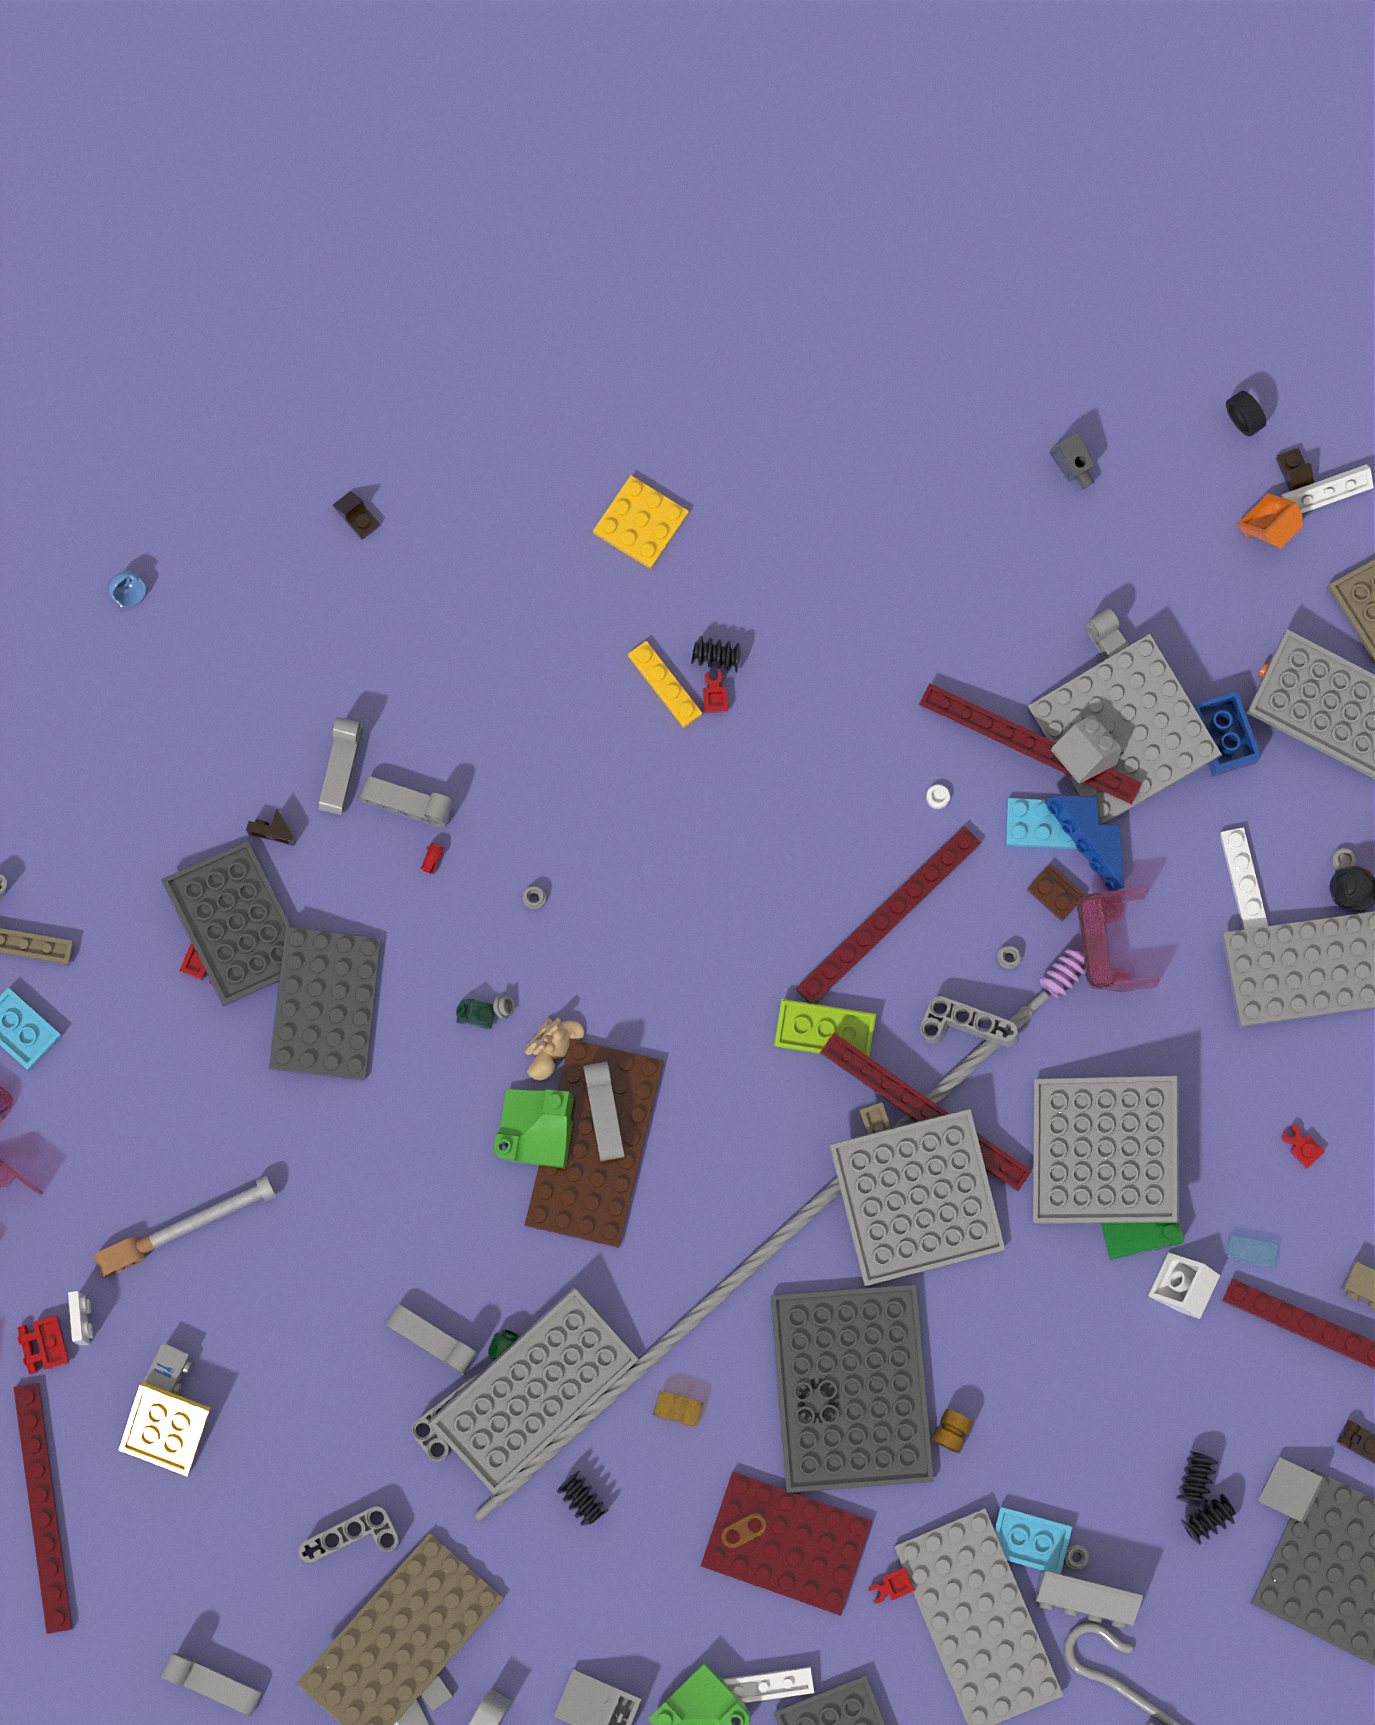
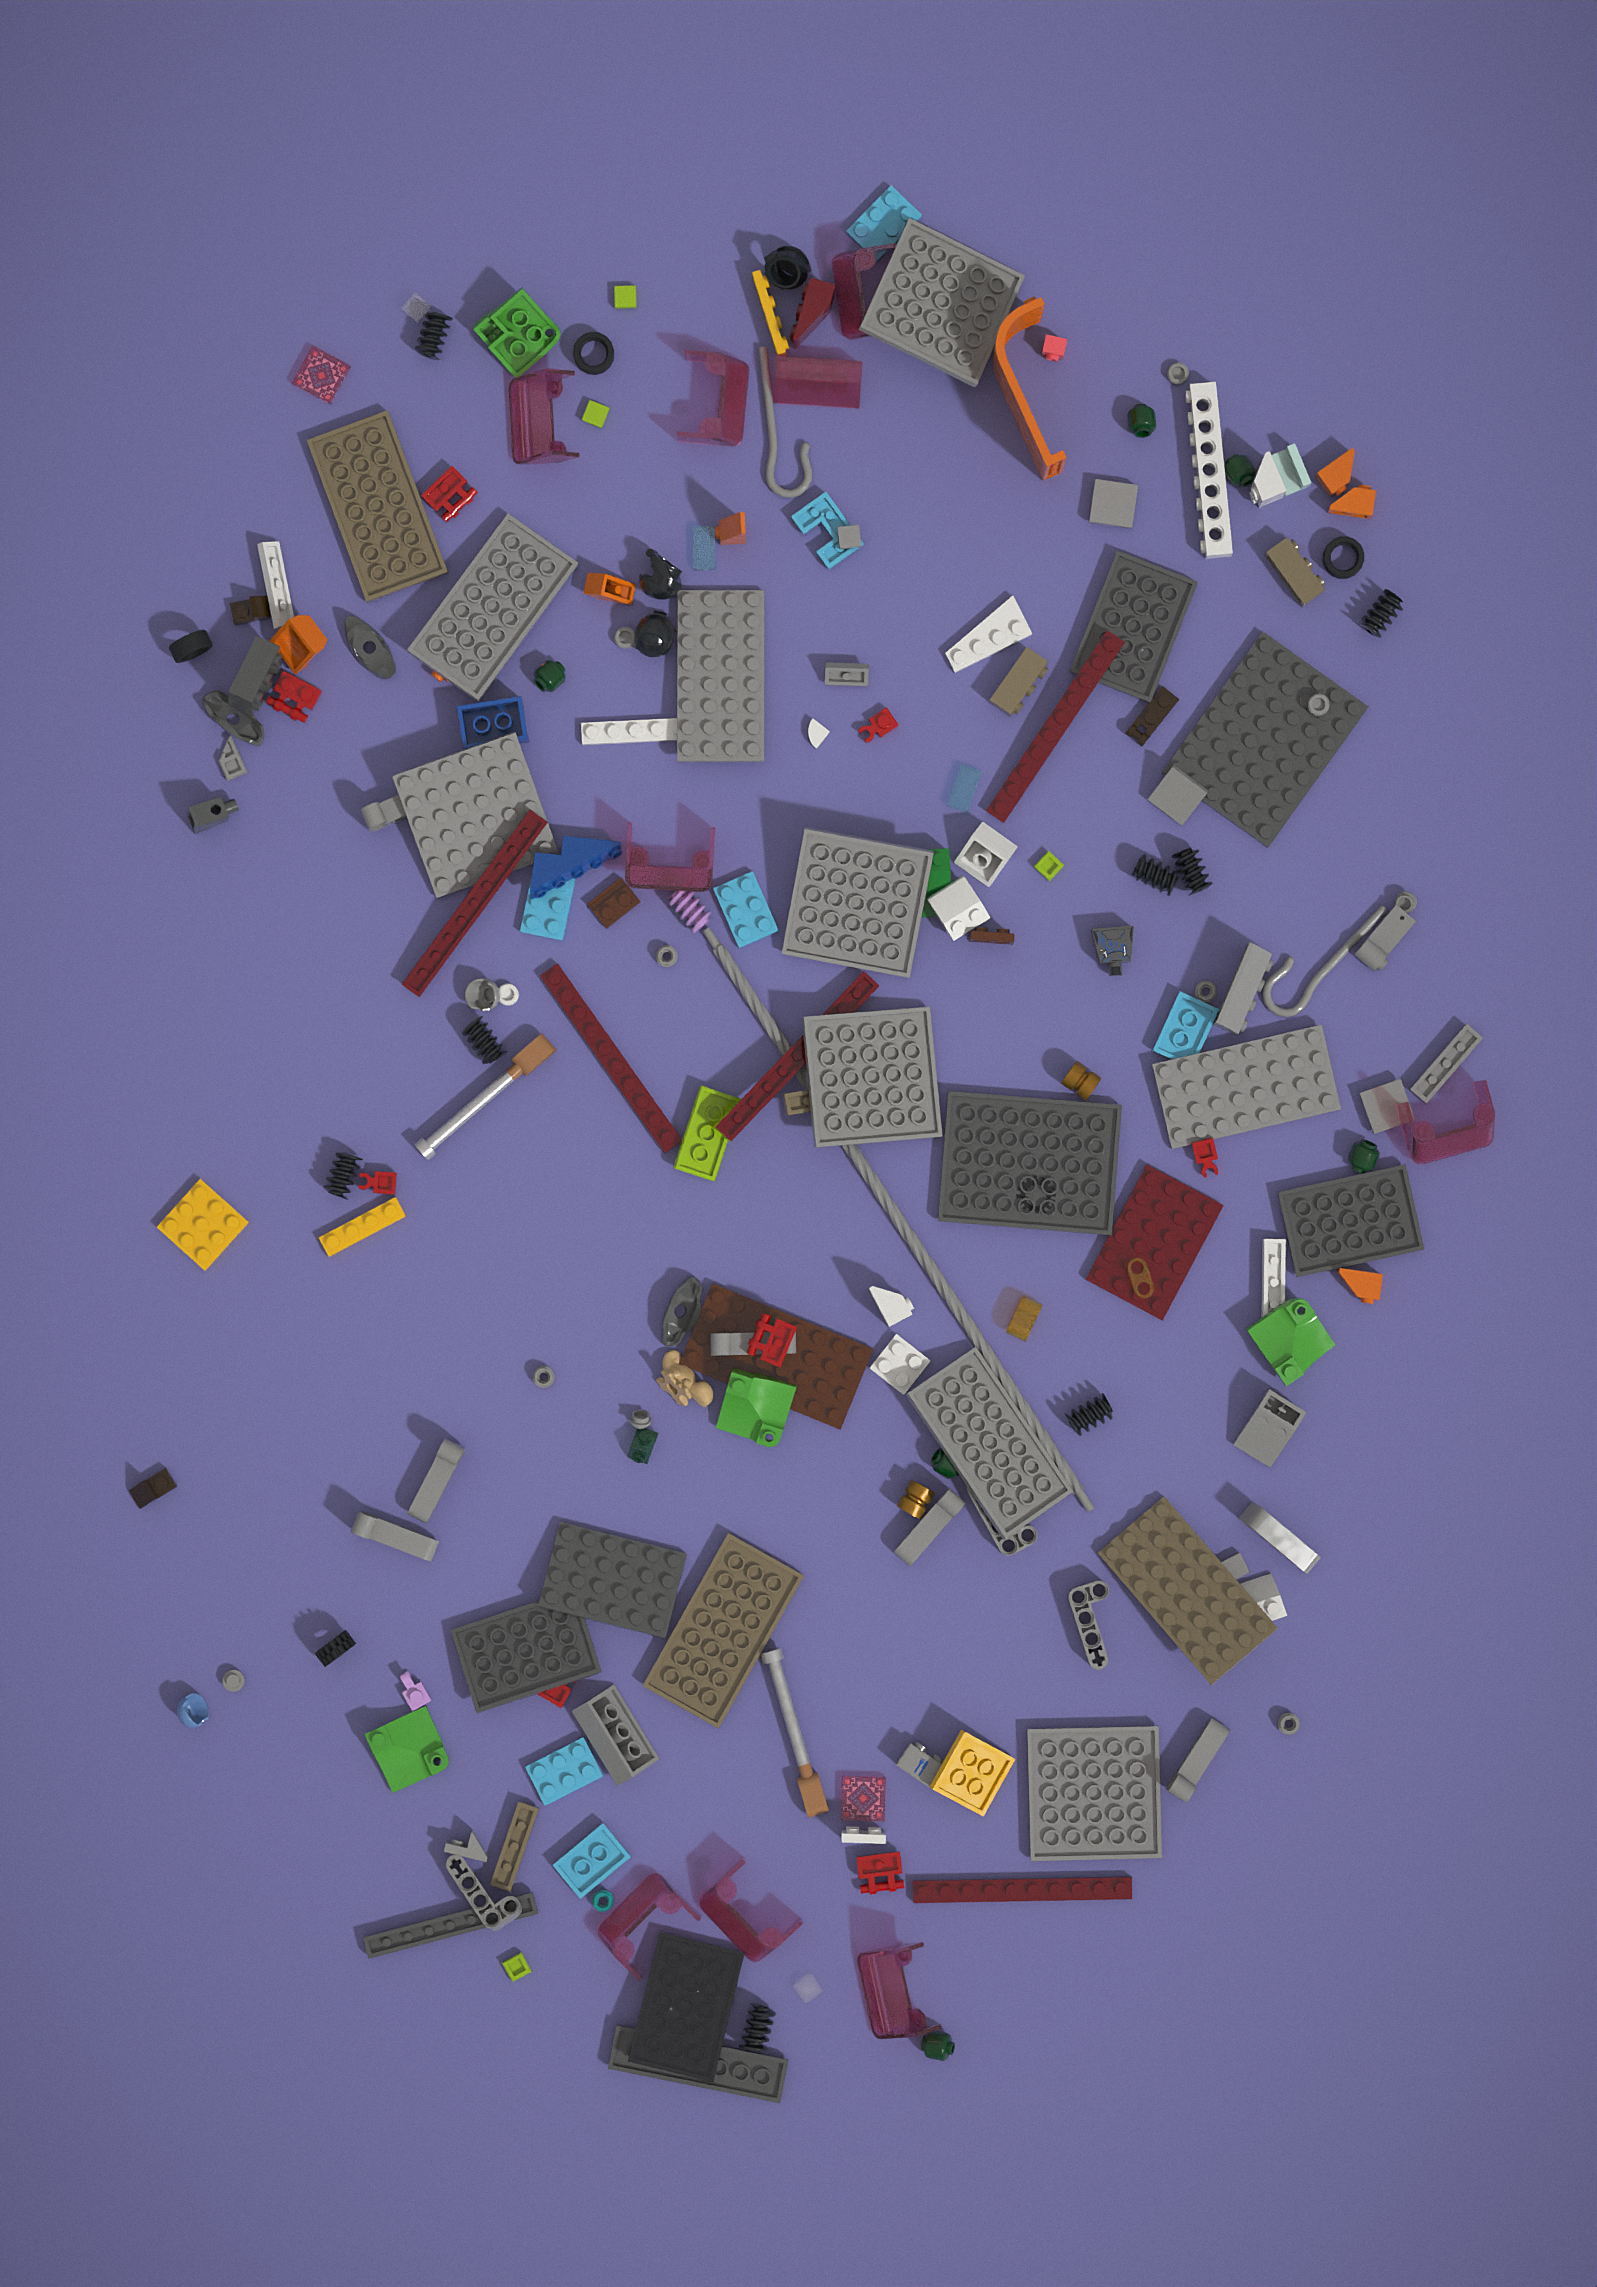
camera: 80 degrees left, 10 degrees up
(14, 901) = (474, 1849): none -> light grey slope
(112, 985) = (564, 1771): none -> medium azure plate
(115, 817) = (408, 1748): none -> bright green slope
(122, 1314) = (863, 1798): none -> clear pink tile
(157, 1033) = (615, 1735): none -> light grey slope
(160, 1572) = (1094, 1793): none -> light grey plate
(164, 626) = (233, 1680): none -> light grey plate
(174, 816) = (415, 1694): none -> lavender plate
(211, 723) = (335, 1648): none -> black tyre
(277, 832) = (446, 1600): dark brown slope -> none
(286, 1131) = (723, 1630): none -> dark tan plate
(432, 858) = (492, 1464): red pin -> none
(459, 1319) = (915, 1499): none -> pearl gold wheel
(606, 1279) = (900, 1364): none -> white plate
(607, 1136) = (778, 1342): none -> red plate
(608, 1029) = (676, 1327): none -> dark grey piece
(668, 1257) = (891, 1305): none -> white slope
(868, 825) = (524, 1062): none -> piece
(883, 776) = (483, 1041): none -> black piece
(933, 768) = (482, 994): none -> light grey hair
(971, 1026) = (725, 1001): light grey beam -> none
(1075, 1034) = (745, 909): none -> medium azure plate
(1087, 749) = (492, 853): light grey slope -> none
(1094, 1295) = (982, 935): none -> reddish brown plate
(1108, 1444) = (1113, 946): none -> dark grey torso
(1119, 1263) = (958, 908): none -> white slope
(1133, 476) = (231, 761): none -> light grey tile
(1184, 1358) = (1048, 866): none -> lime tile
(1188, 456) = (248, 727): none -> dark grey piece
(1219, 531) = (296, 690): none -> red plate
(1227, 480) = (255, 676): none -> dark grey brick
(1267, 608) = (381, 660): none -> dark grey piece
(1281, 1080) = (817, 733): none -> white tile
(1287, 786) = (549, 676): none -> dark green head
(1352, 1102) = (846, 674): none -> light grey plate

